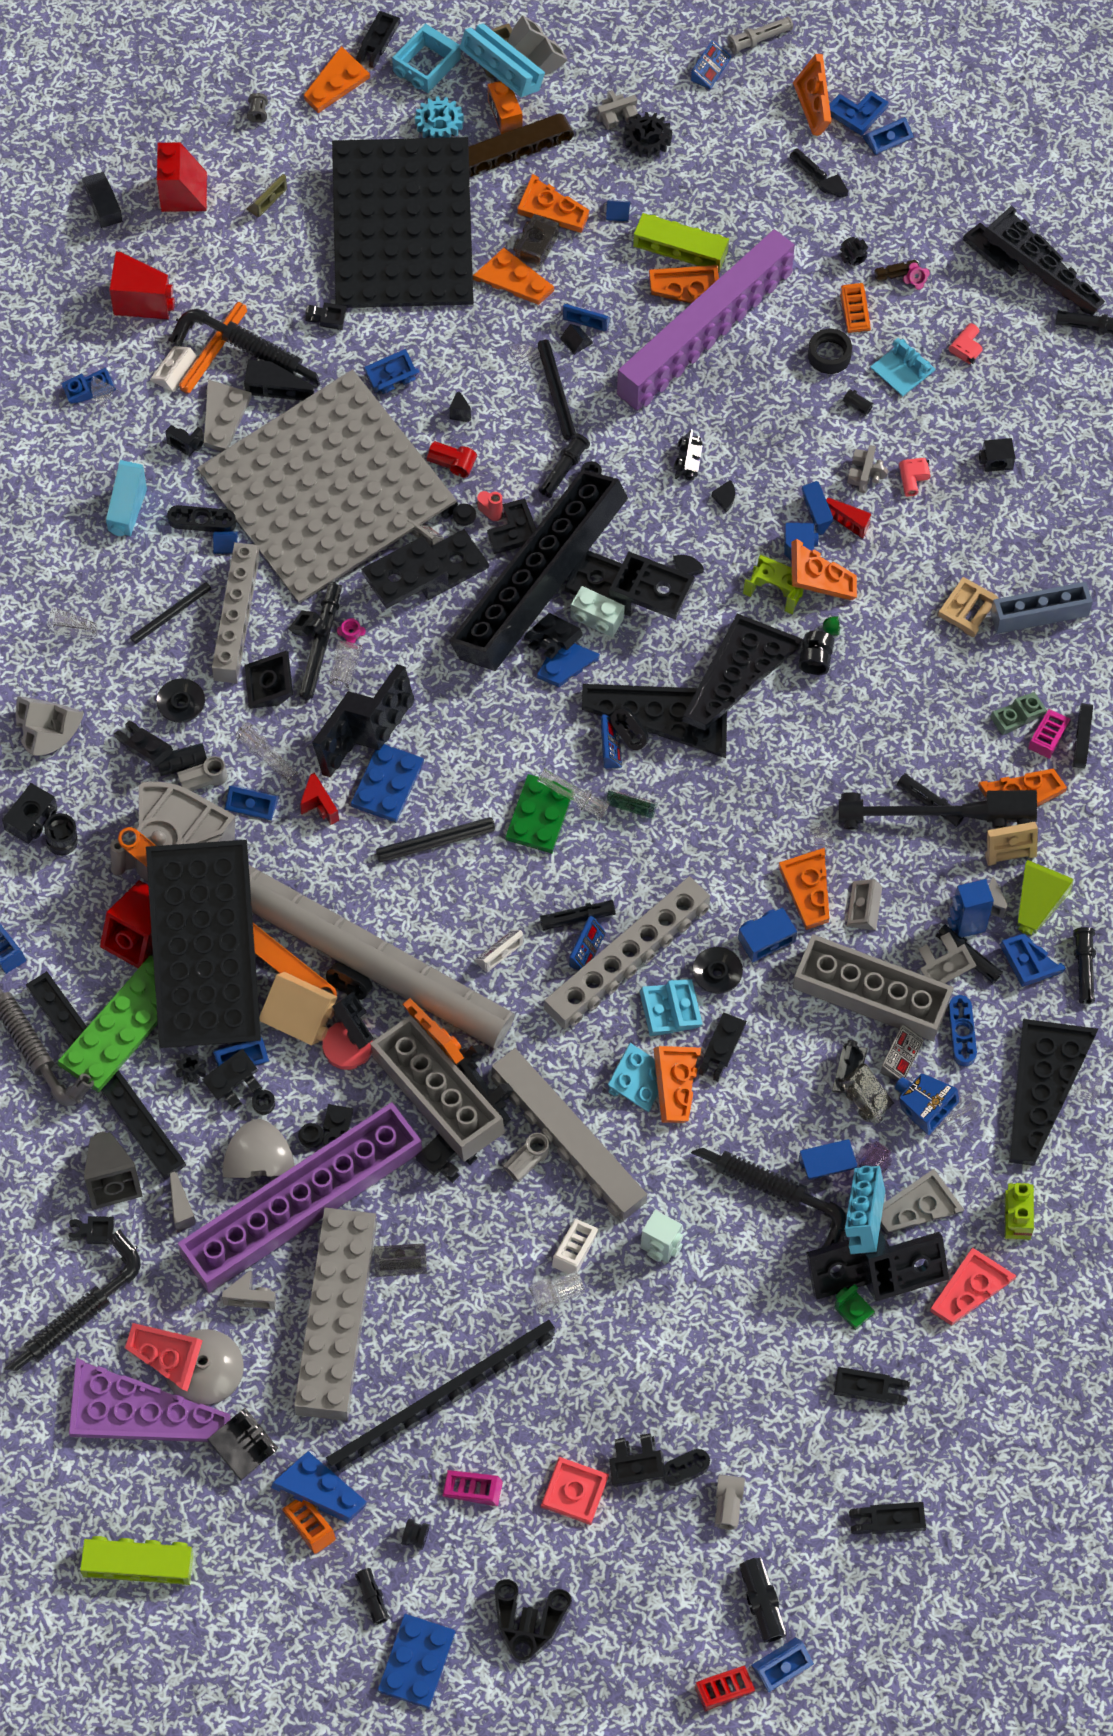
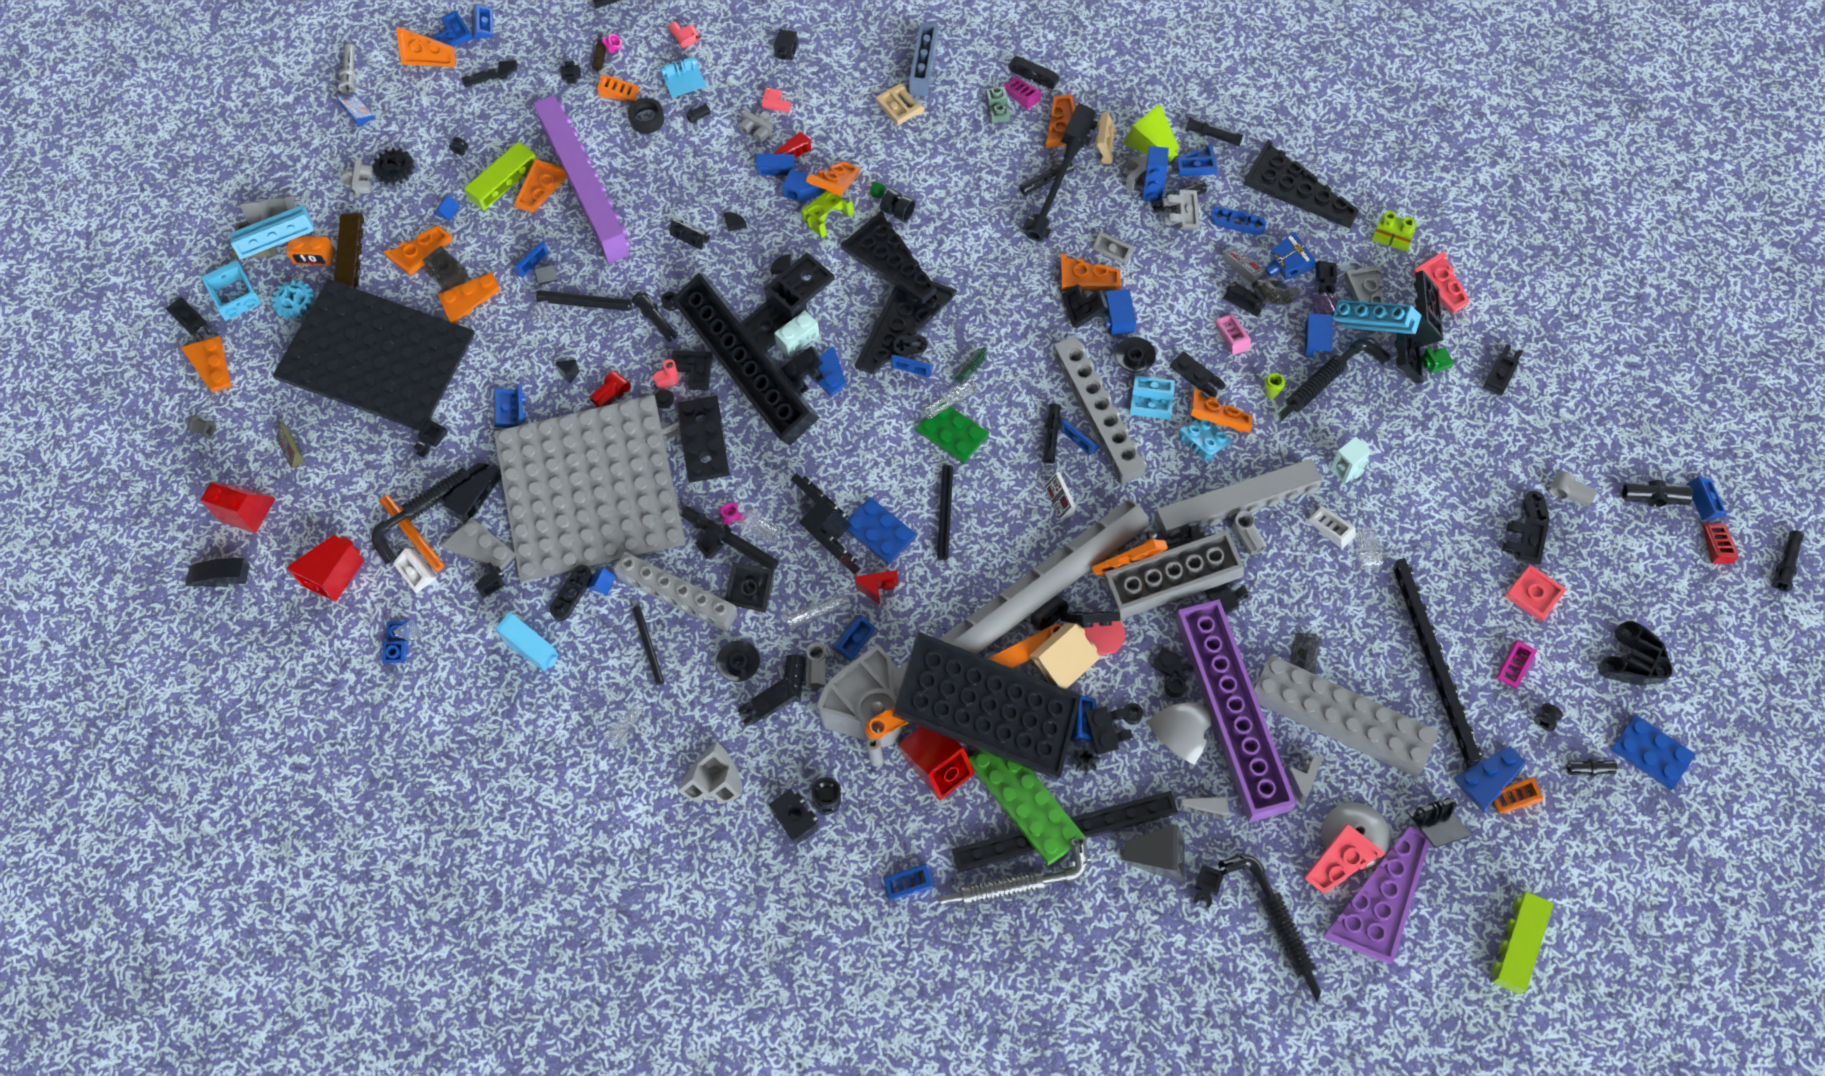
camera: 65 degrees left, 0 degrees up
(703, 185) = (458, 146): none -> black bush
(732, 1127) = (1273, 385): none -> lime cone
(758, 893) = (1081, 308): none -> black plate
(784, 1080) = (1237, 344): none -> bright pink slope
(872, 987) = (1188, 260): light grey brick -> none
(890, 1518) = (1610, 391): black hinge -> none
(923, 1149) = (1326, 274): none -> black plate

